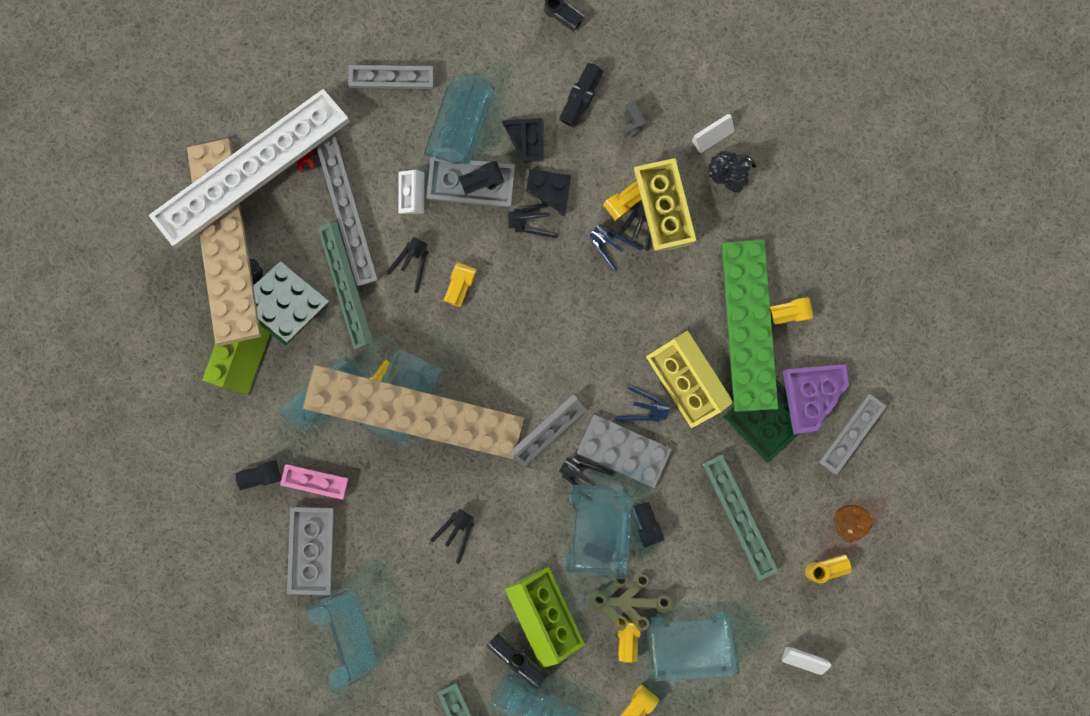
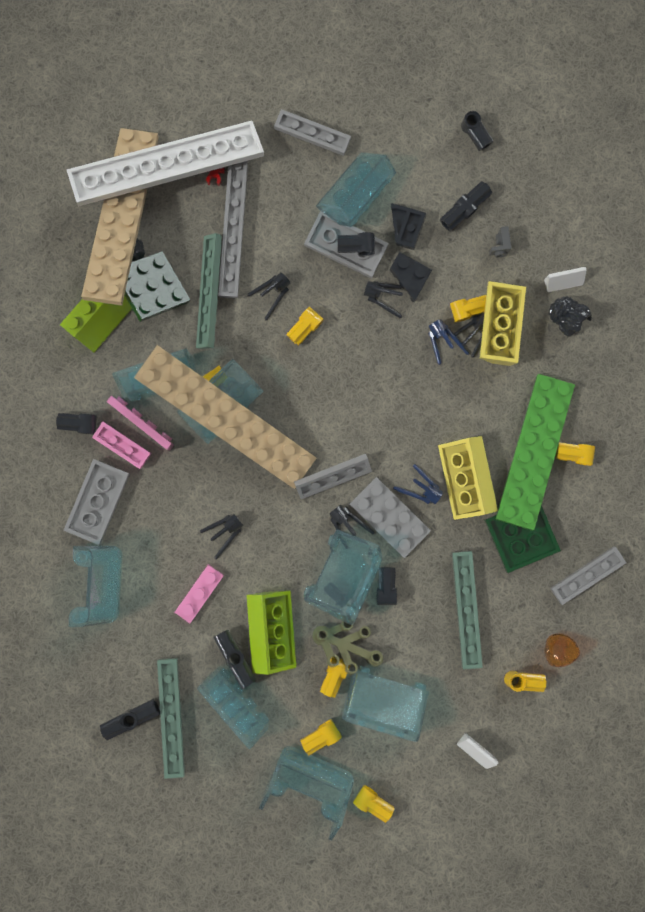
camera: 20 degrees right, 0 degrees up
(317, 446) = (135, 417): none -> bright pink plate
(411, 192) = (293, 234): white slope -> none
(454, 606) = (199, 593): none -> bright pink plate
(813, 394) = (568, 529): medium lavender plate -> none

